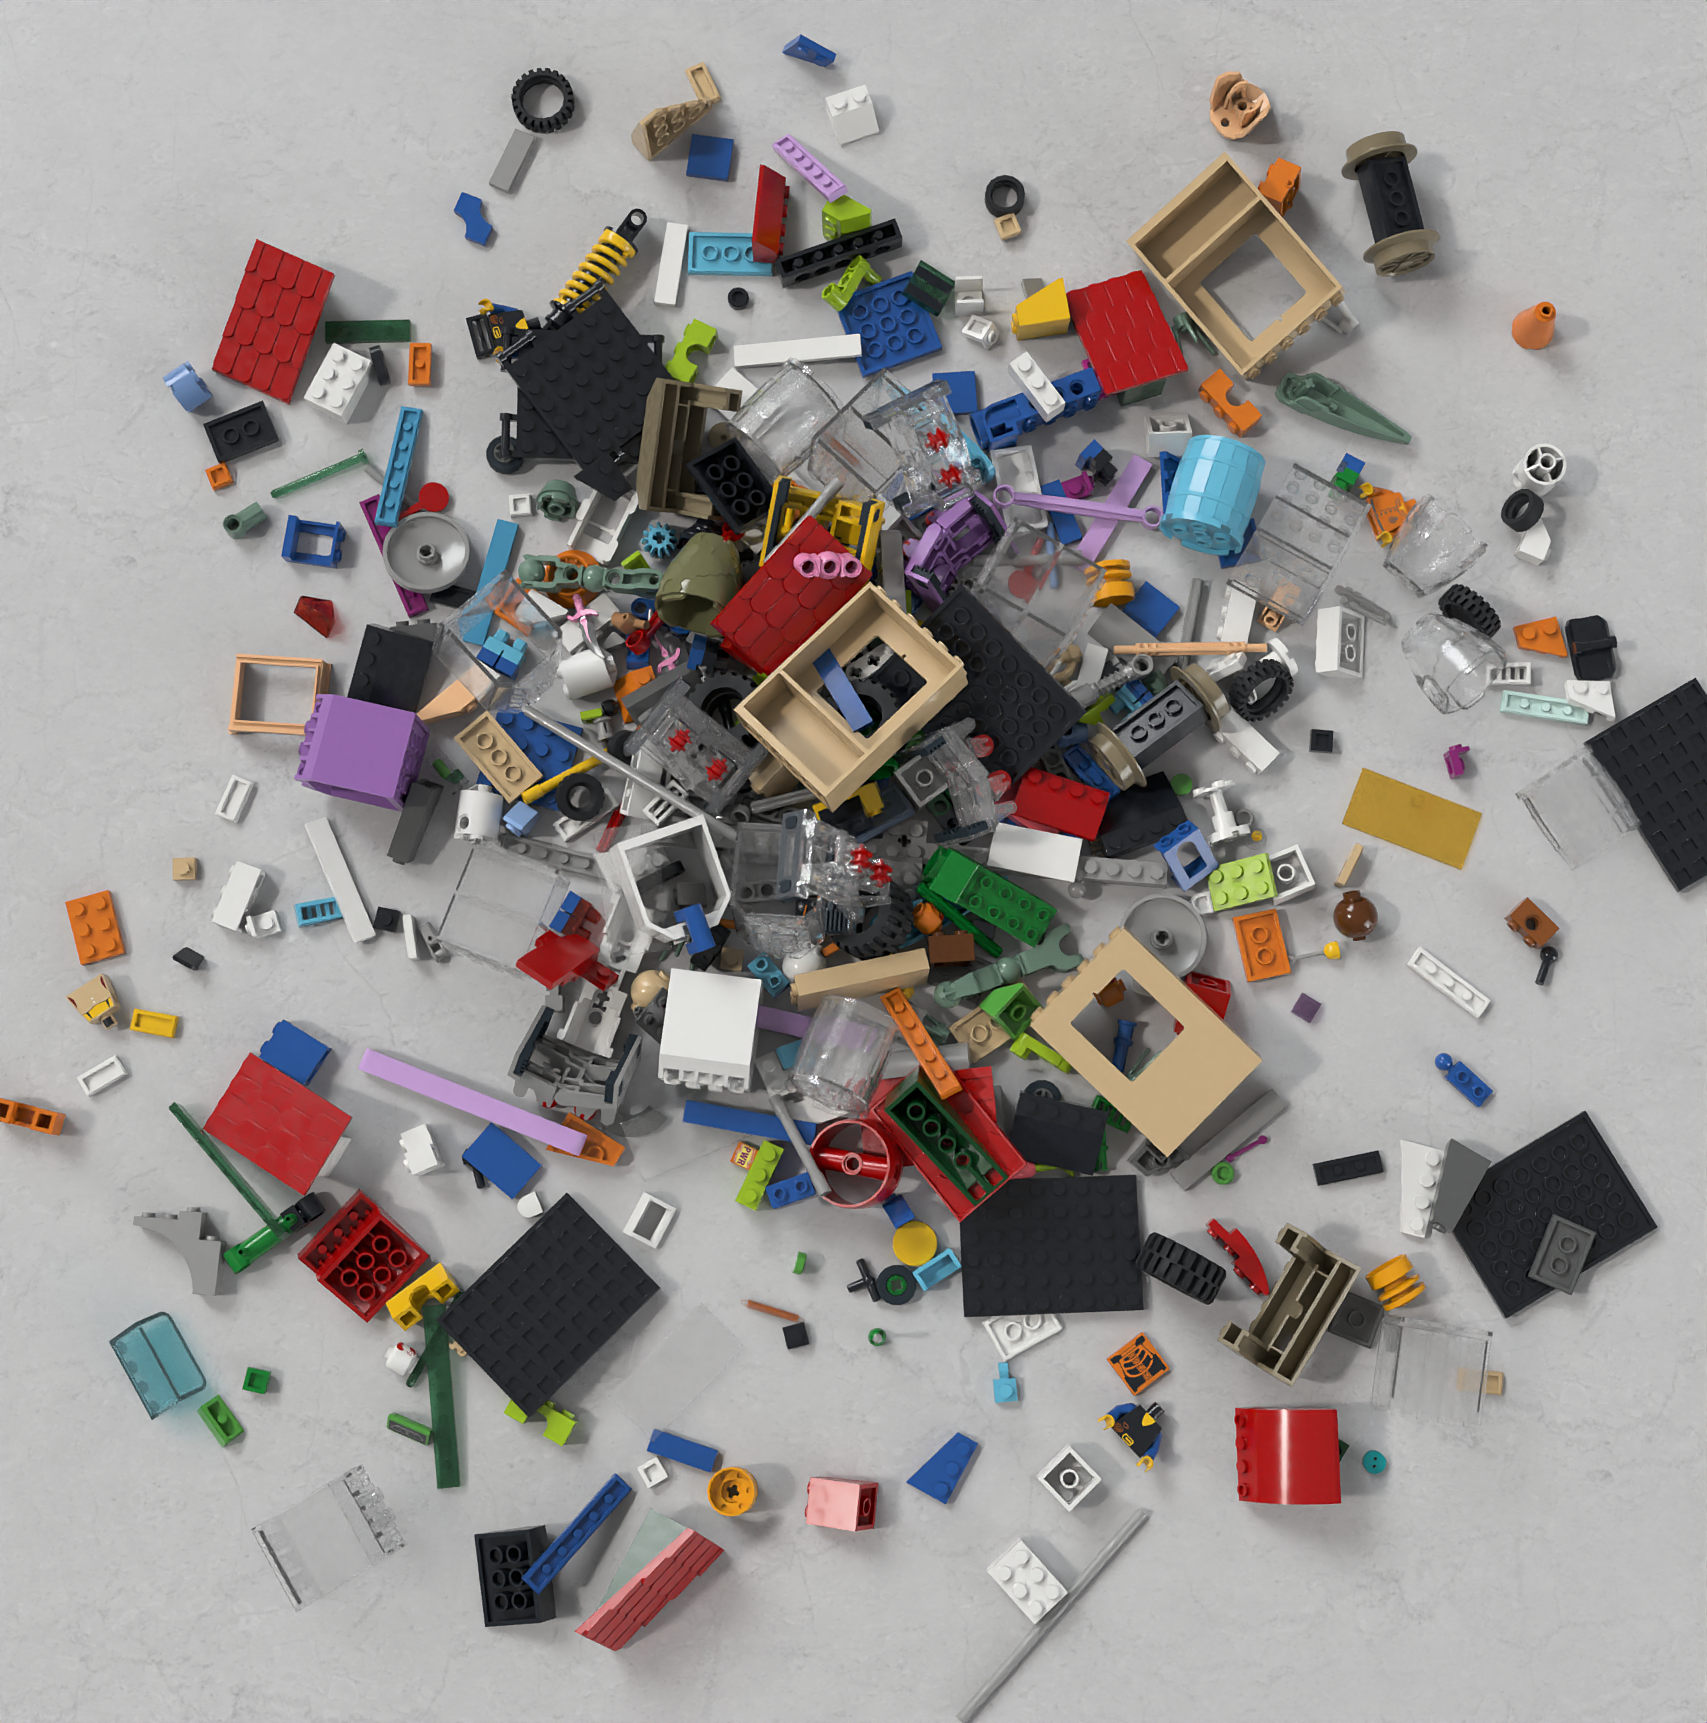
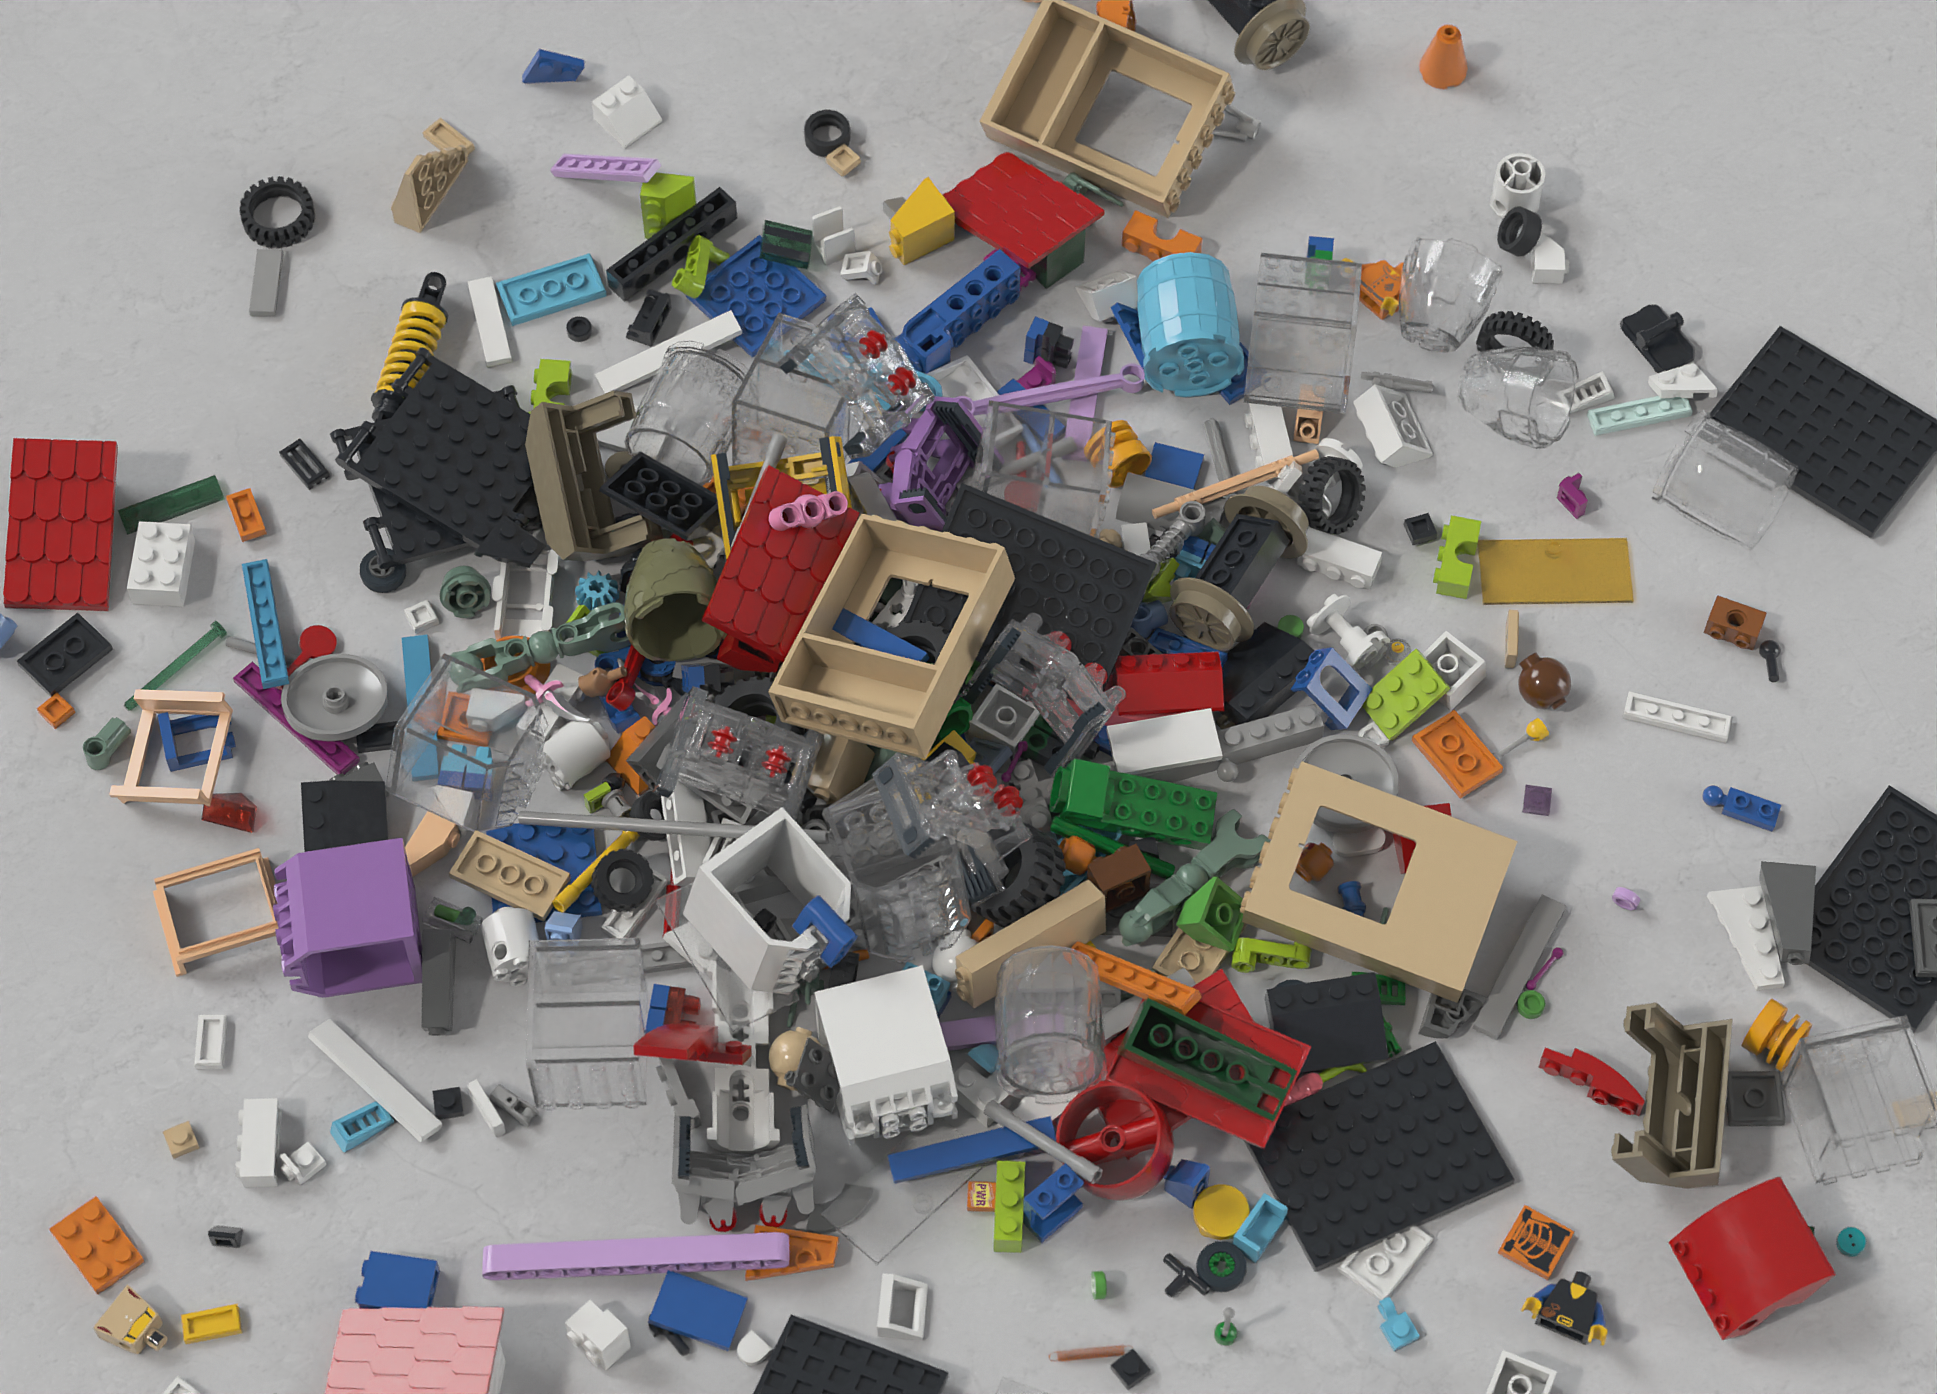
camera: 25 degrees left, 20 degrees down
(270, 532) = (174, 703): none -> light nougat piece
(379, 365) = (200, 530): black beam -> none
(469, 210) = (237, 345): blue tile -> none
(506, 316) = (320, 441): torso -> none
(614, 643) = (594, 710): light grey slope -> none
(710, 157) = (487, 205): blue tile -> none
(769, 216) = (580, 234): red slope -> none
(796, 311) = (650, 318): none -> black hinge
(926, 808) = (1022, 746): none -> magenta hinge
(1036, 386) = (950, 284): white brick -> none
(1181, 1268) = (1534, 1105): black tyre -> none
(1328, 793) = (1454, 575): none -> lime arch
(1332, 404) = (1277, 206): sand green piece -> none
(1334, 1119) = (1625, 898): none -> lavender tile
(1347, 1168) = (1665, 945): black tile -> none
(1541, 636) = (1601, 347): orange wing -> none

